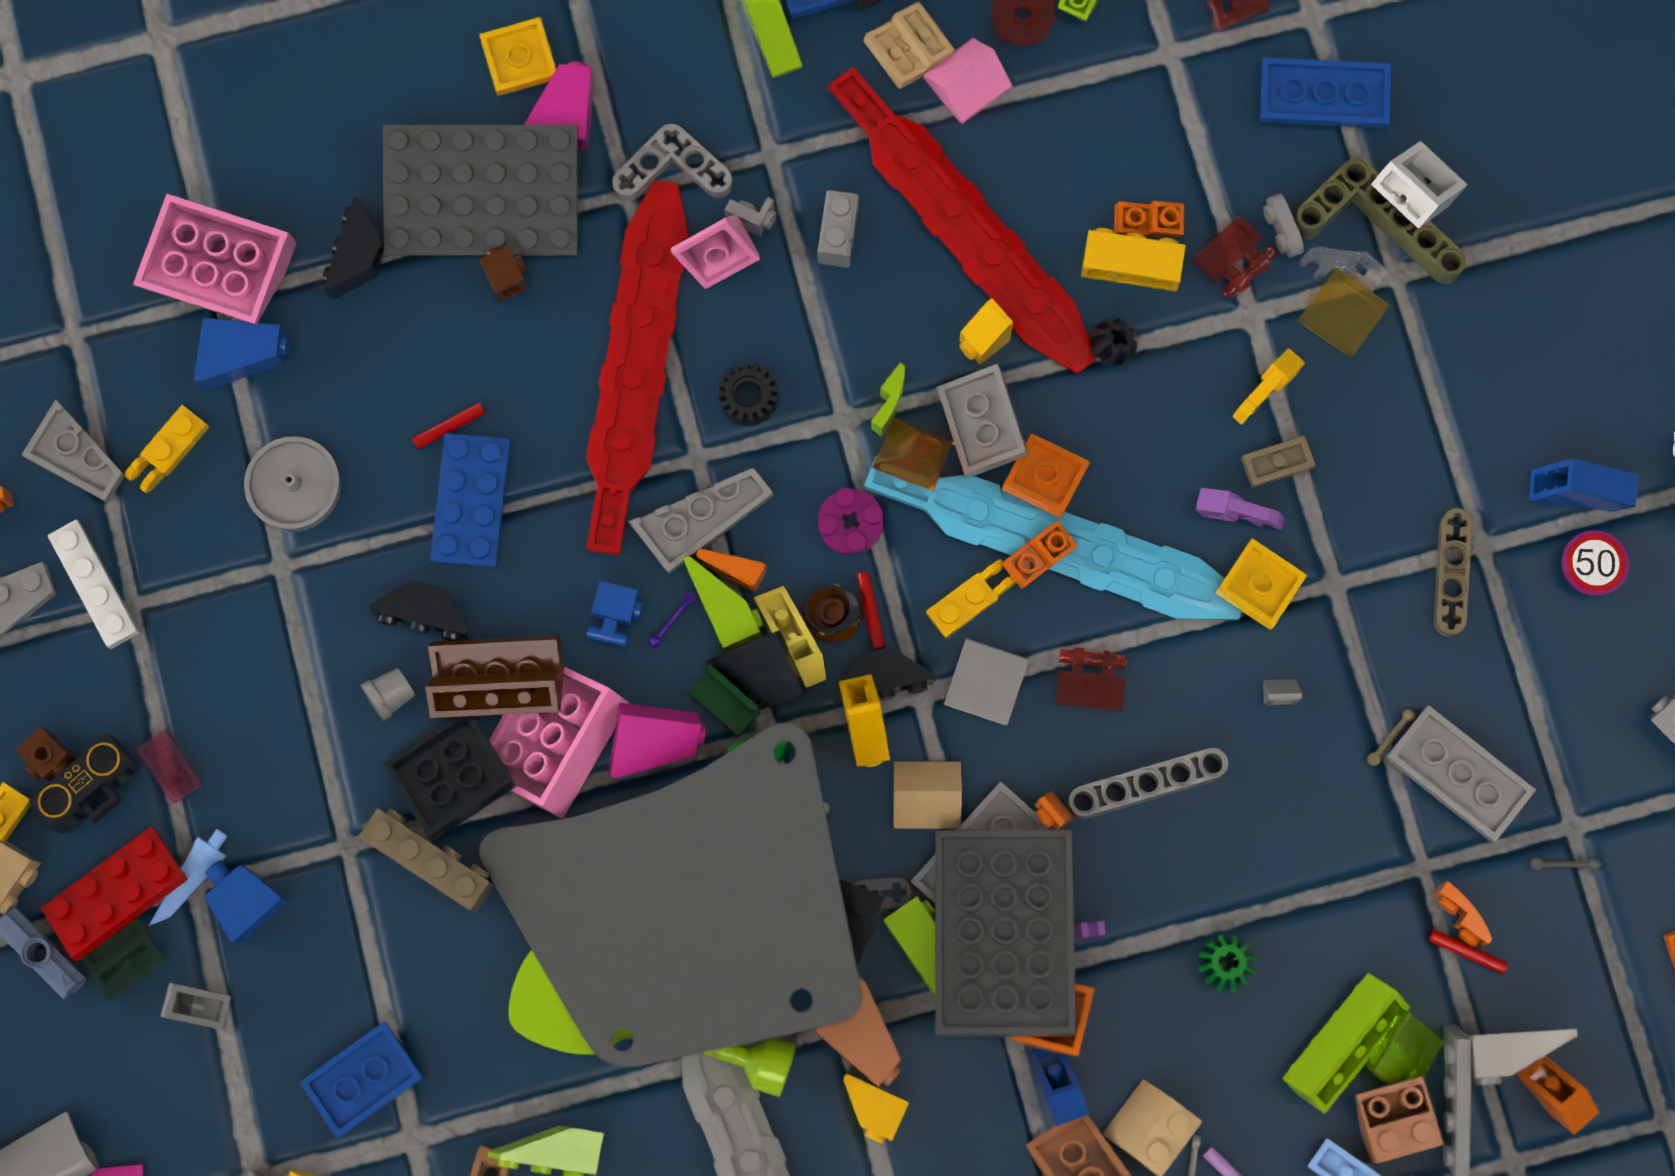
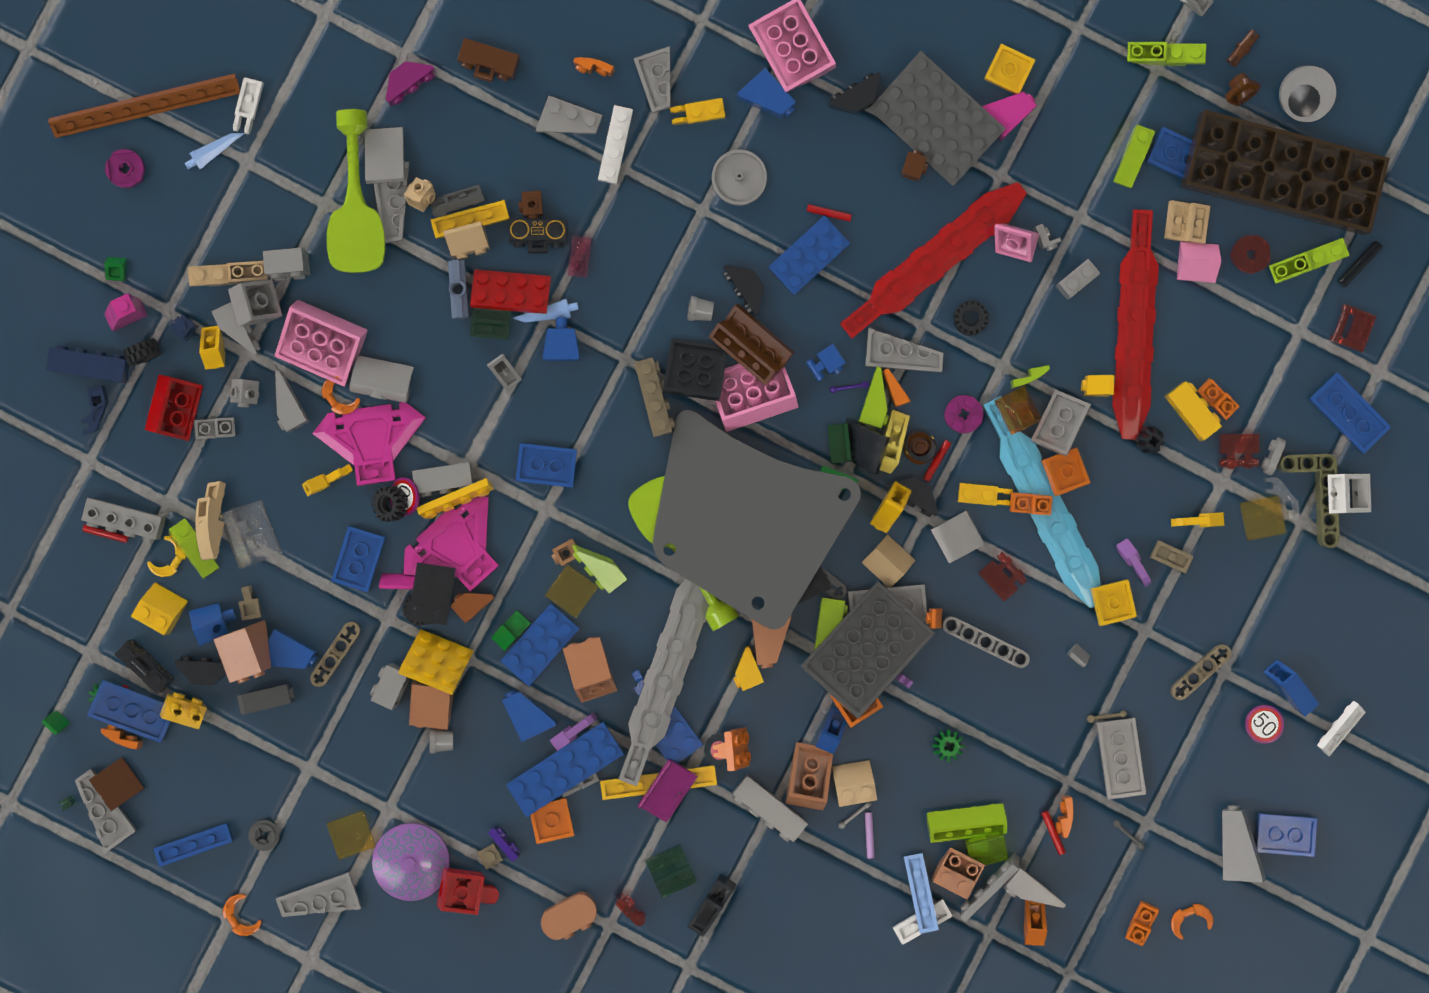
camera: 35 degrees right, 10 degrees up
(652, 738) = (794, 432): dark pink slope -> none
(666, 155) = (1034, 175): light grey beam -> none

